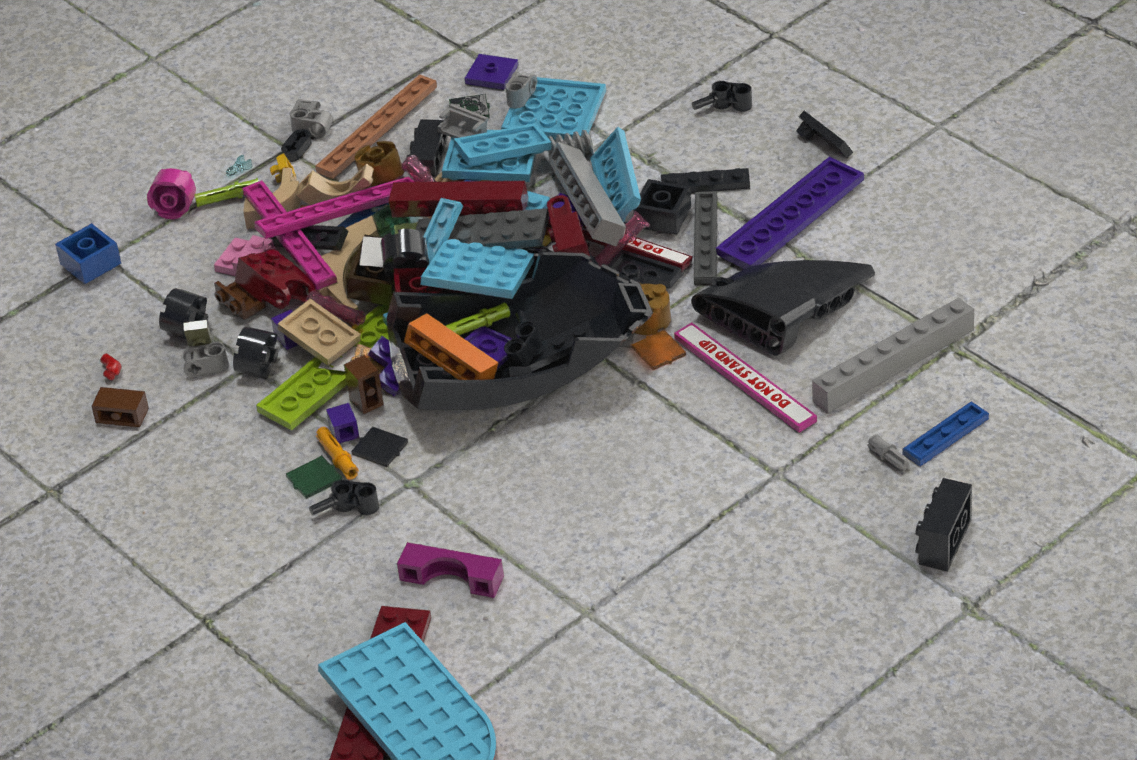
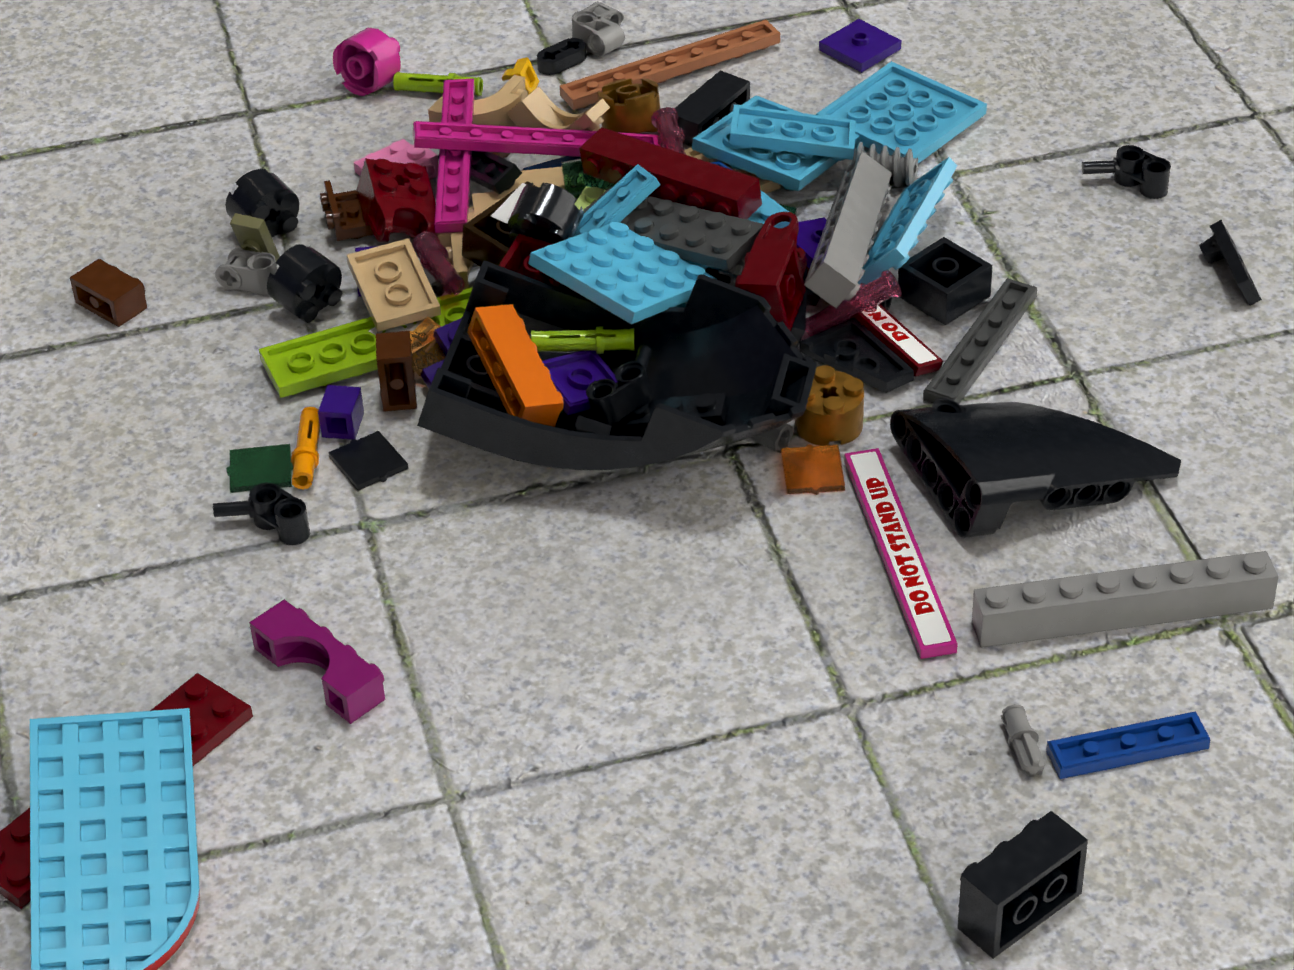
camera: 25 degrees right, 0 degrees up
(88, 253) = (221, 99): blue brick -> none
(112, 365) = (142, 243): red arm -> none
(239, 165) = (480, 58): clear light blue piece -> none
(461, 122) = (761, 88): light grey hinge -> none
(474, 103) = (801, 80): piece -> none
(520, 89) = (868, 73): light grey piece -> none
(711, 180) = (1038, 270): black plate -> none
(790, 213) = (1115, 350): dark purple plate -> none

